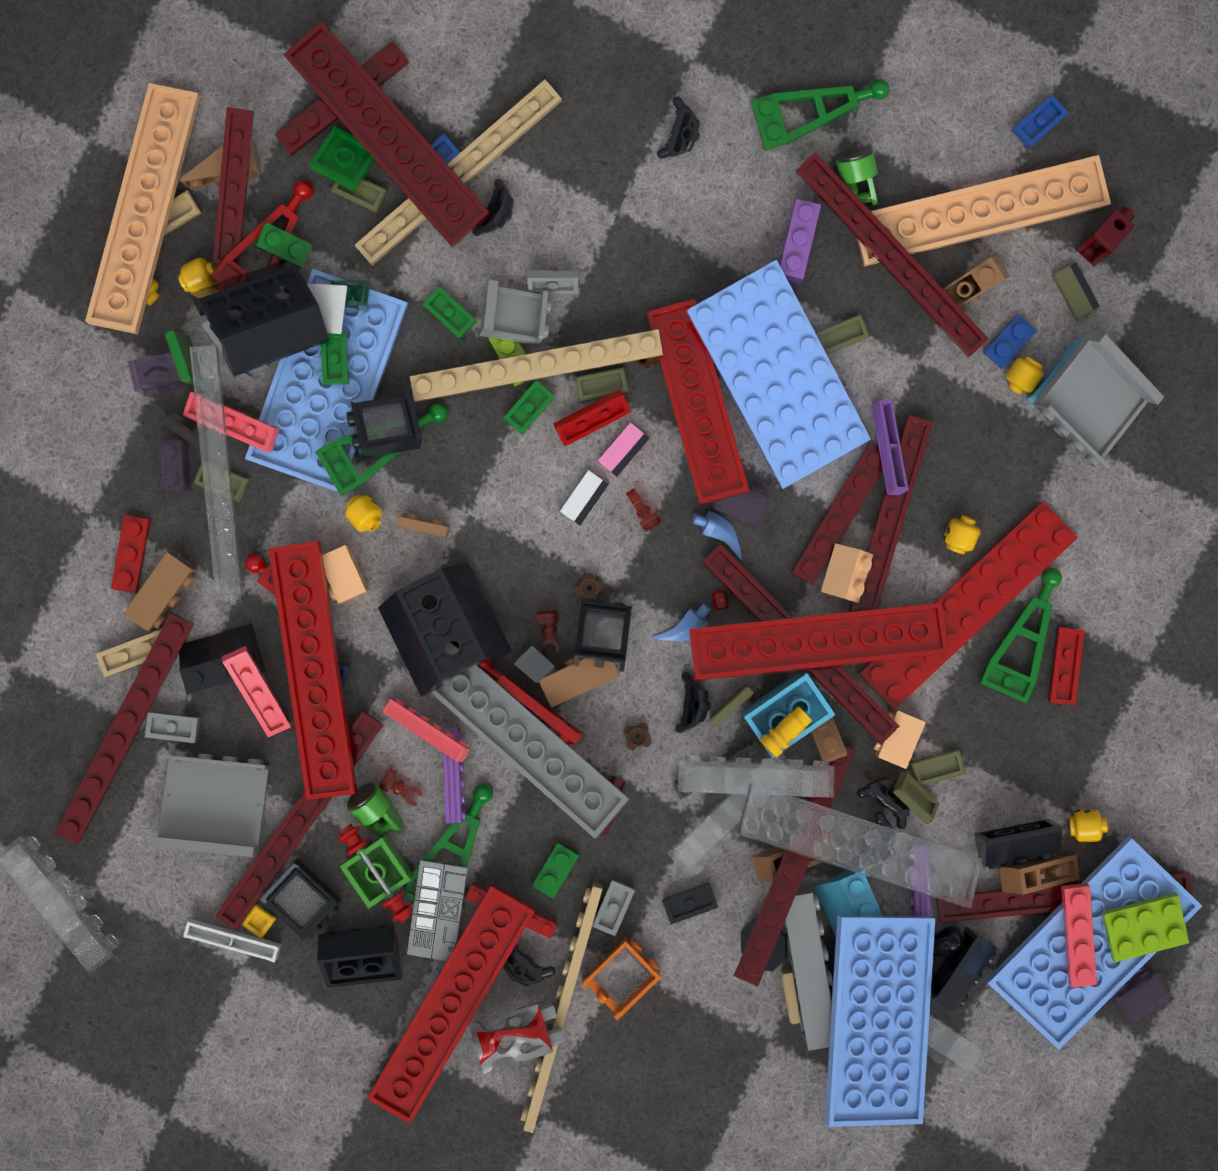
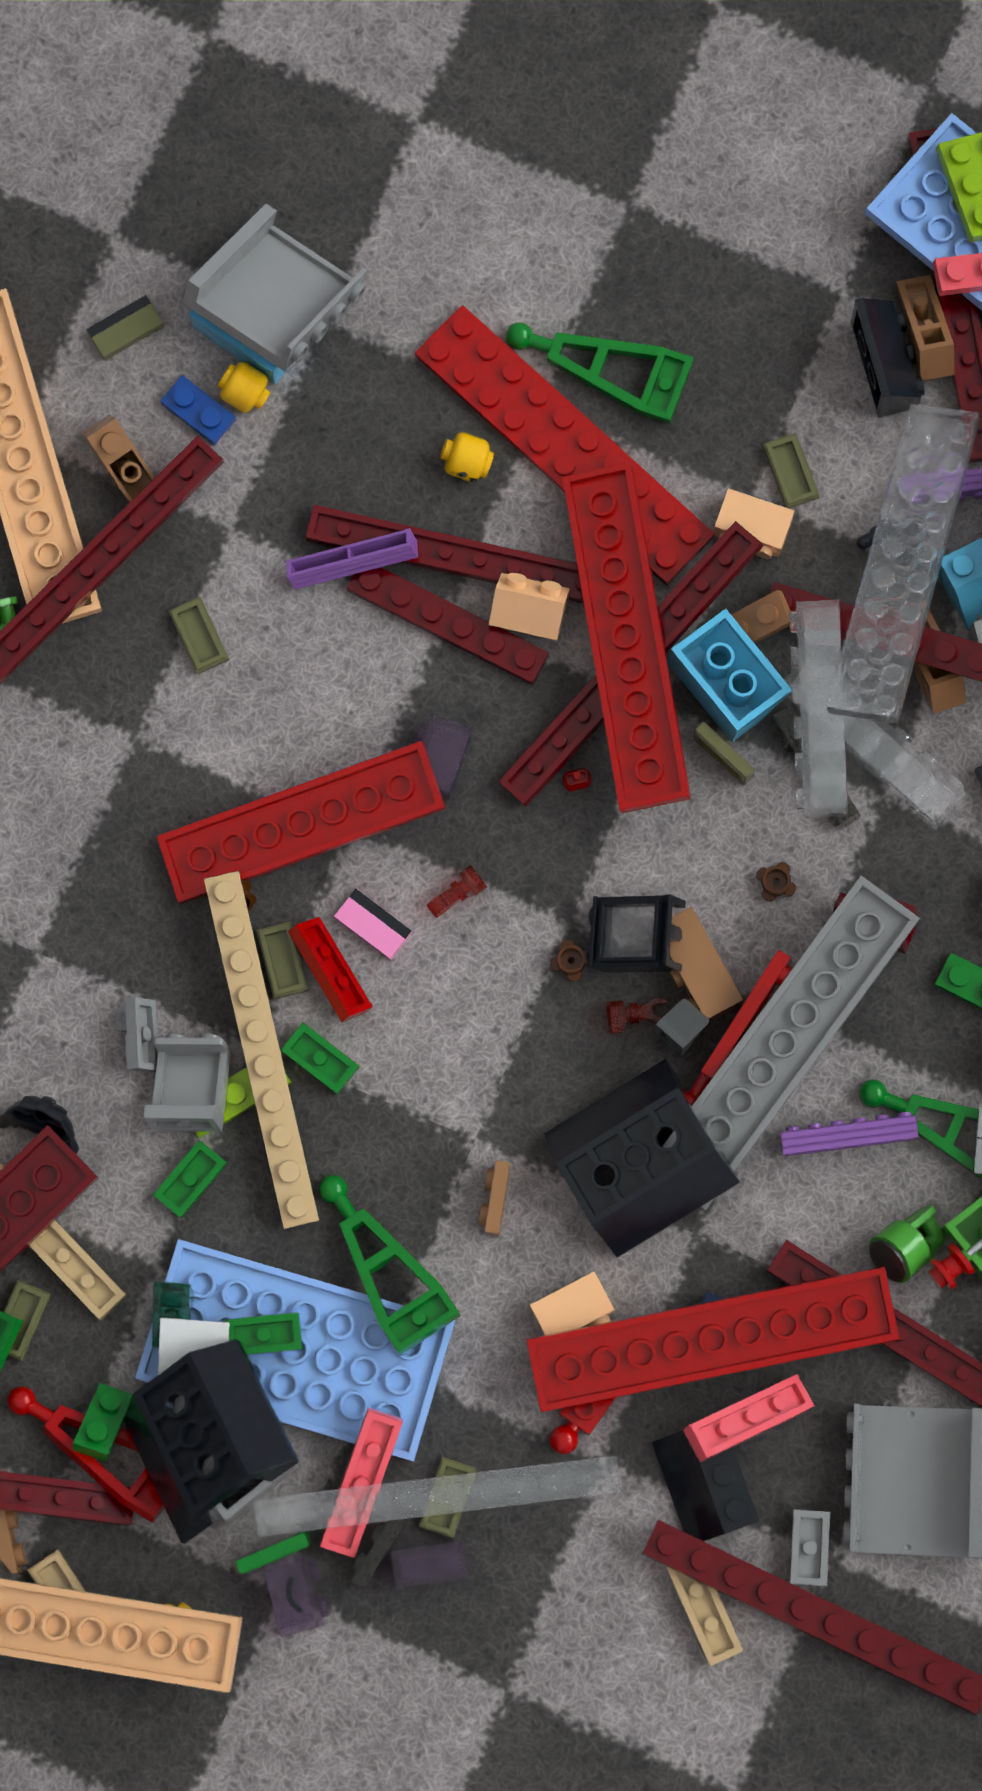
camera: 85 degrees left, 10 degrees down
(130, 554) = (561, 1625): red plate -> none
(161, 592) = (614, 1573): medium nougat brick -> none
(196, 275) = (152, 1545): yellow head -> none
(363, 513) = (483, 1284): yellow head -> none
(384, 425) = (356, 1255): black window -> none
(389, 782) = (867, 1227): clear red piece -> none
(426, 730) = (789, 1171): coral piece -> none
(584, 498) = (444, 975): white tile -> none
(691, 620) = (619, 824): medium blue bar -> none
(695, 704) = (725, 803): black piece -> none
(719, 528) = (476, 786): medium blue bar -> none
(778, 374) = (258, 714): light blue plate -> none
(785, 732) = (754, 671): yellow axle -> none
(799, 240) = (72, 699): medium lavender brick -> none
(883, 793) = (834, 531): black piece -> none
(916, 797) = (833, 495): olive tile -> none
(1066, 666) = (639, 309): red plate -> none
(1088, 825) = (854, 267): yellow head -> none
(1107, 236) = (51, 290): dark red torso -> none

